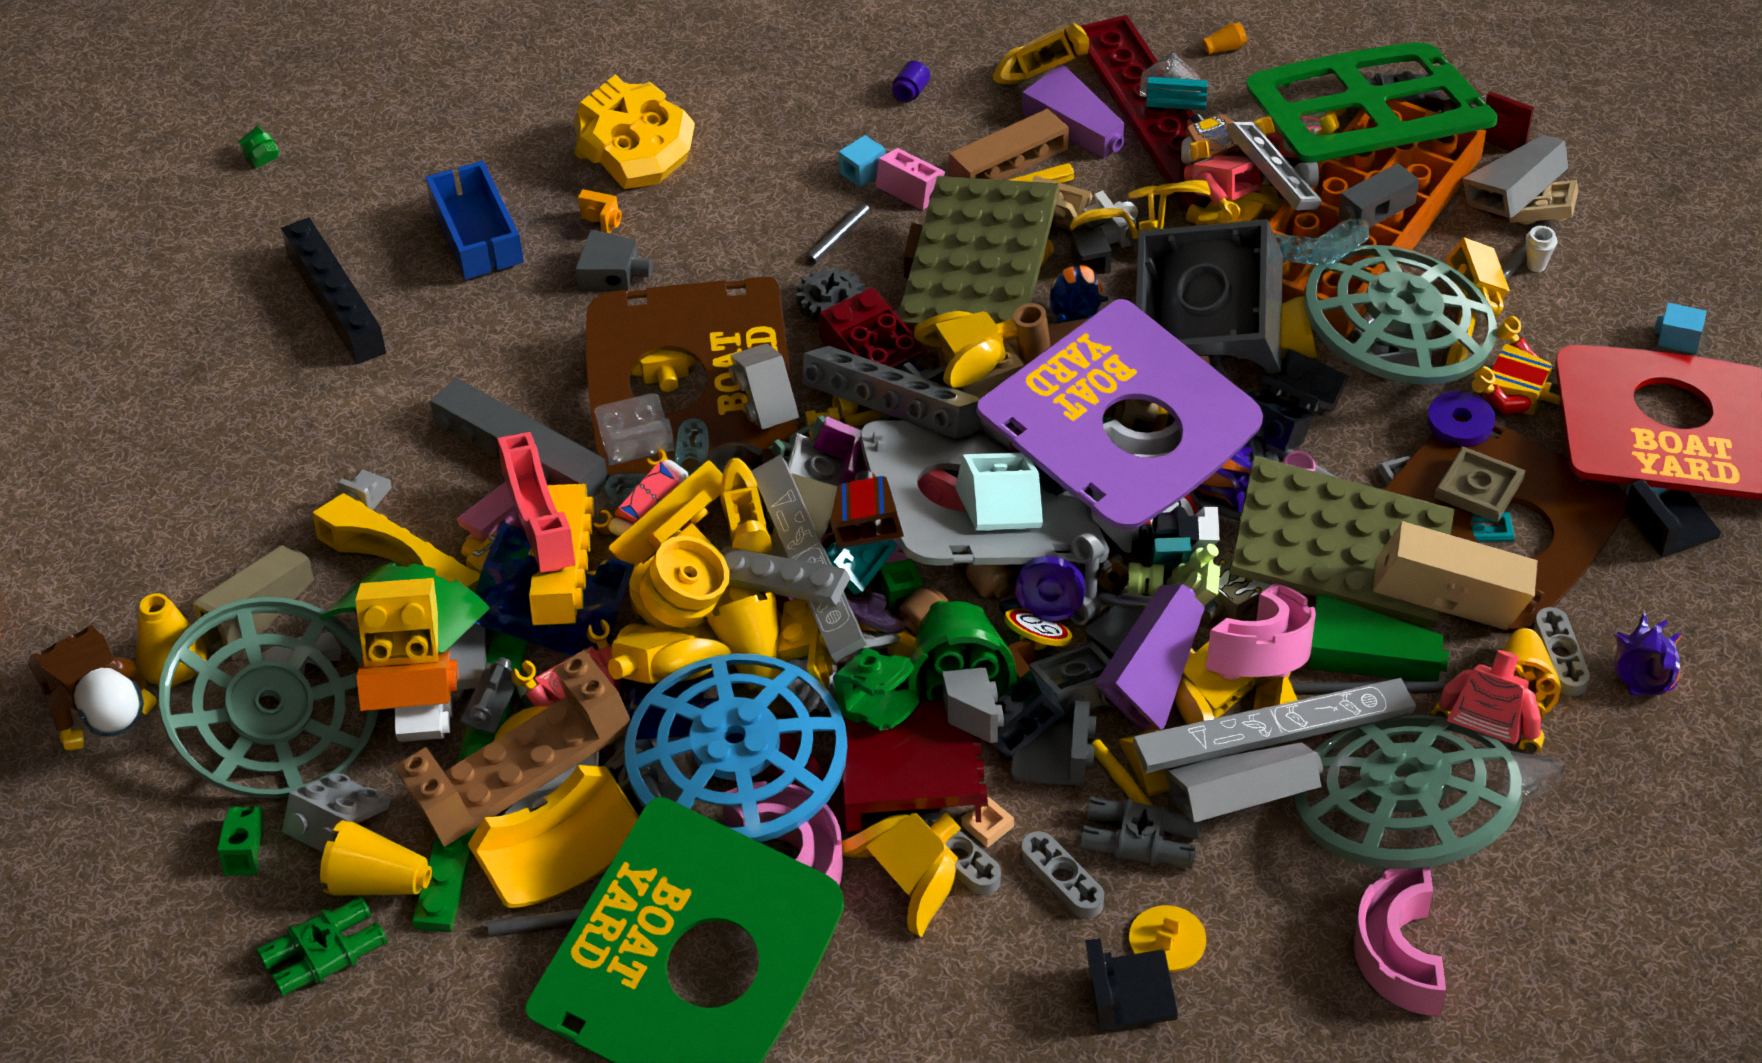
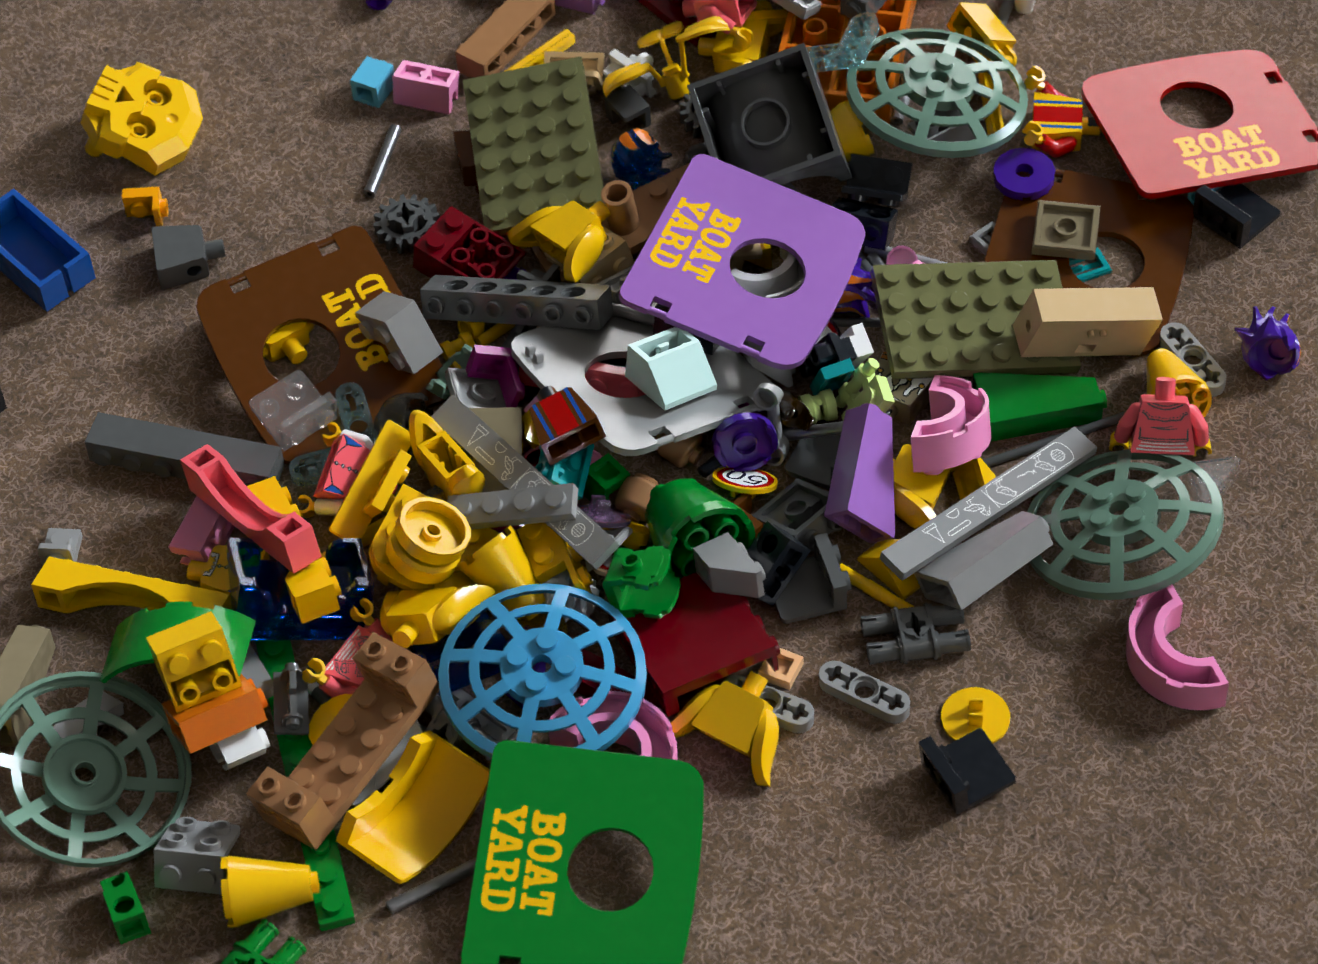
camera: 20 degrees left, 5 degrees up
(1680, 328) = (1173, 32): medium azure brick -> none

